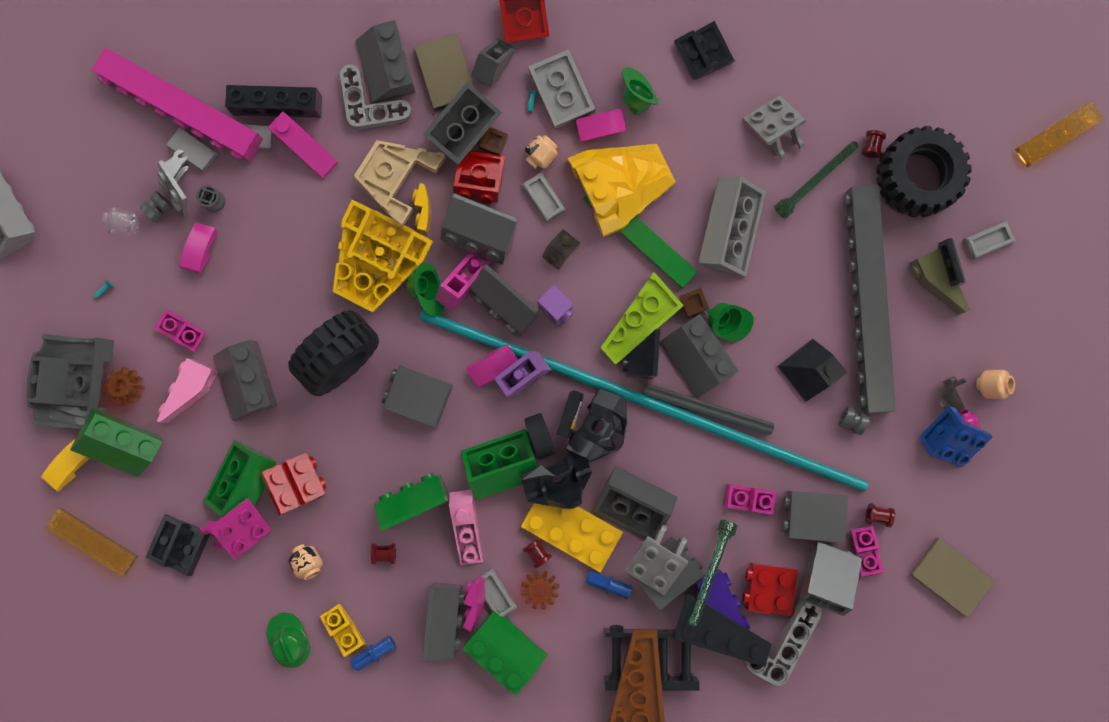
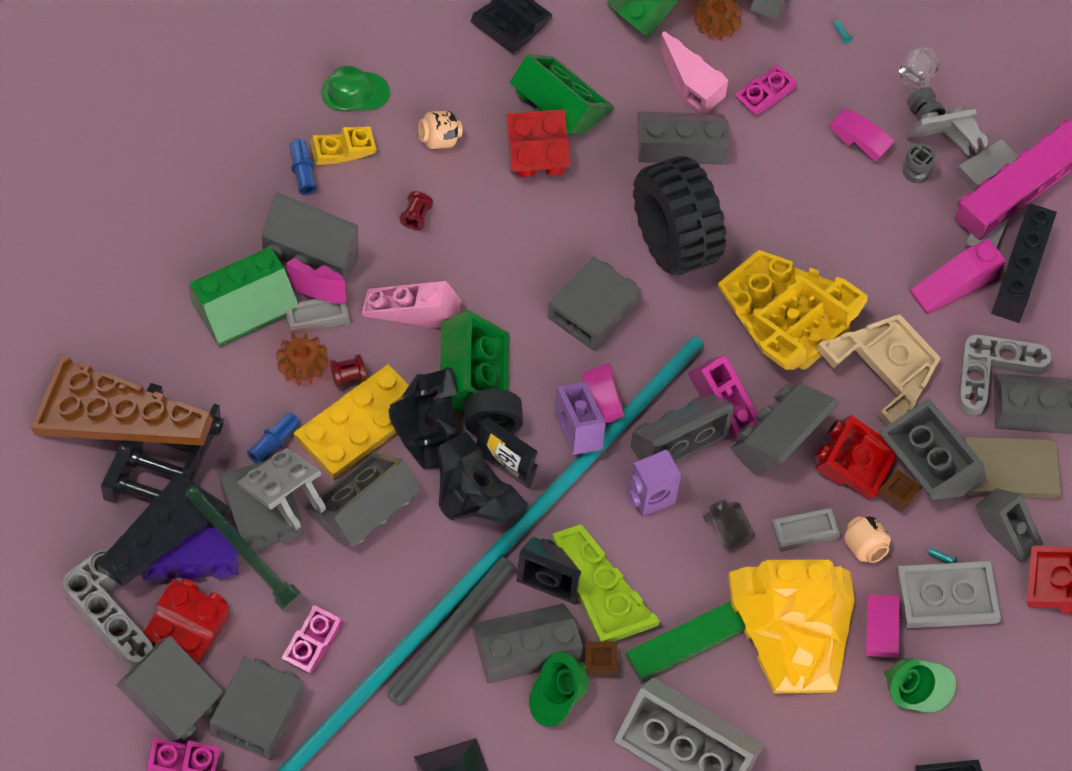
camera: 105 degrees right, 25 degrees down
(238, 529) = (505, 74): dark pink plate -> none
(411, 501) = (467, 253): green slope -> none
(422, 203) = (843, 385): yellow slope -> none
(424, 286) = (735, 342): green piece -> none

